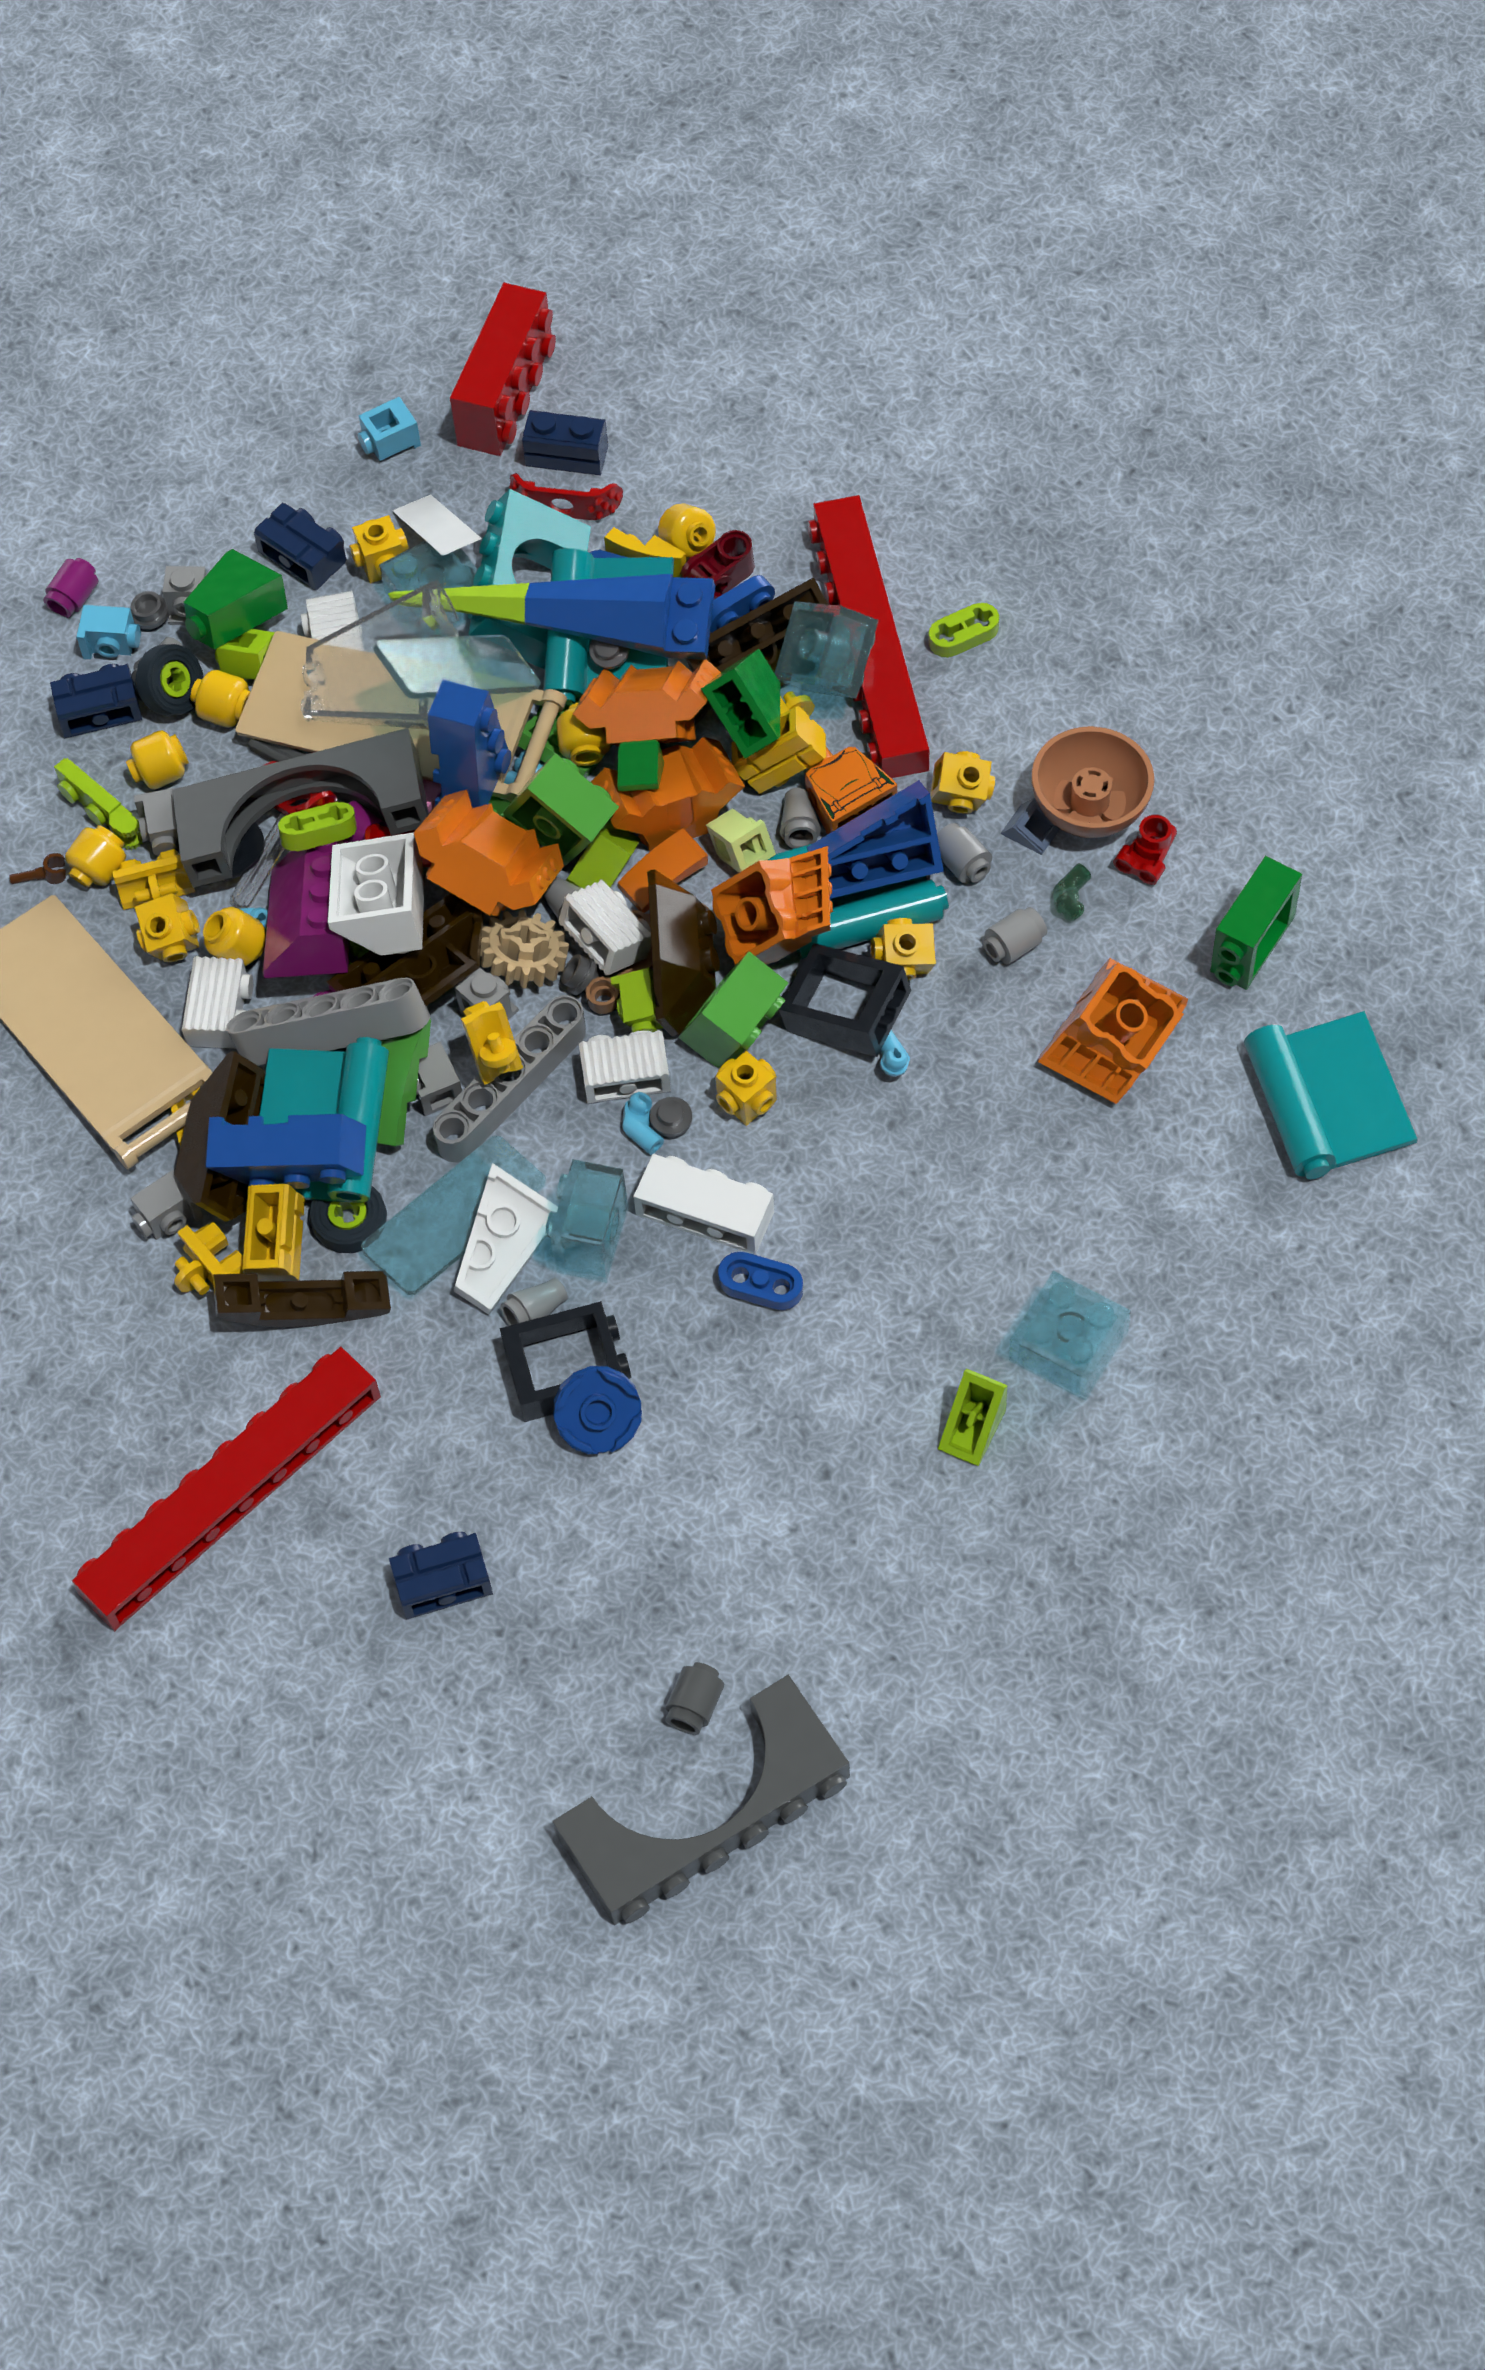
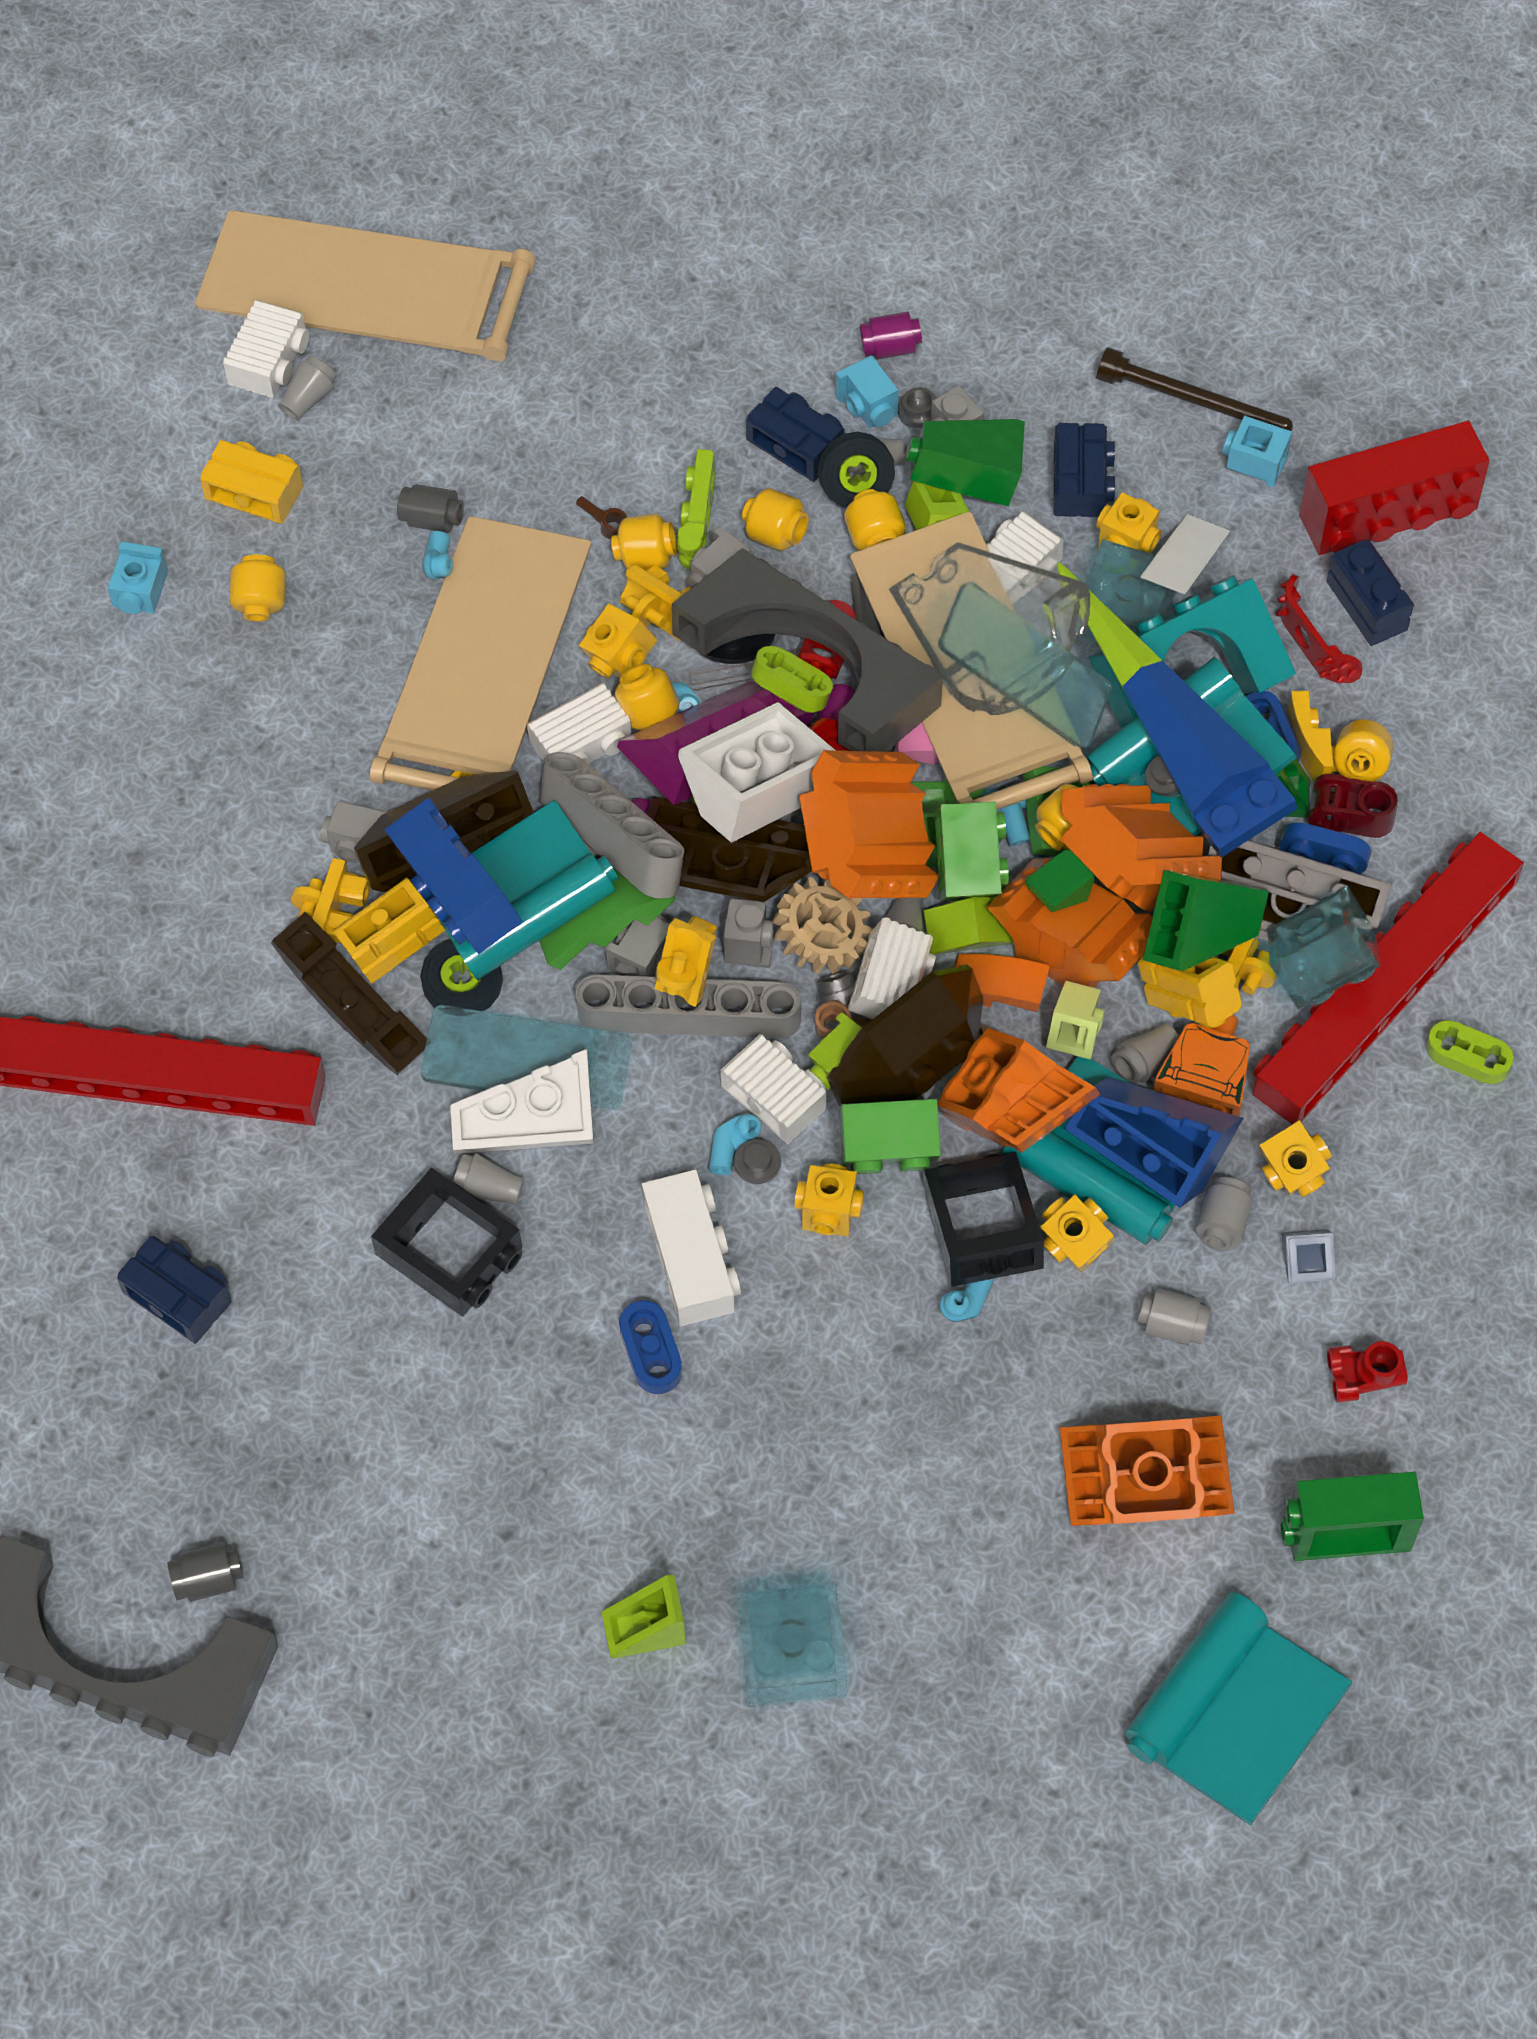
camera: 50 degrees right, 0 degrees up
(236, 468) = (1118, 368): none -> dark brown piece
(468, 742) = (954, 731): blue wedge -> none
(587, 1220) = (588, 1164): clear light blue brick -> none
(597, 1410) = (416, 1301): blue tile -> none
(1066, 892) = (1260, 1331): clear green arm -> none
(1092, 781) = (1392, 1249): nougat piece -> none

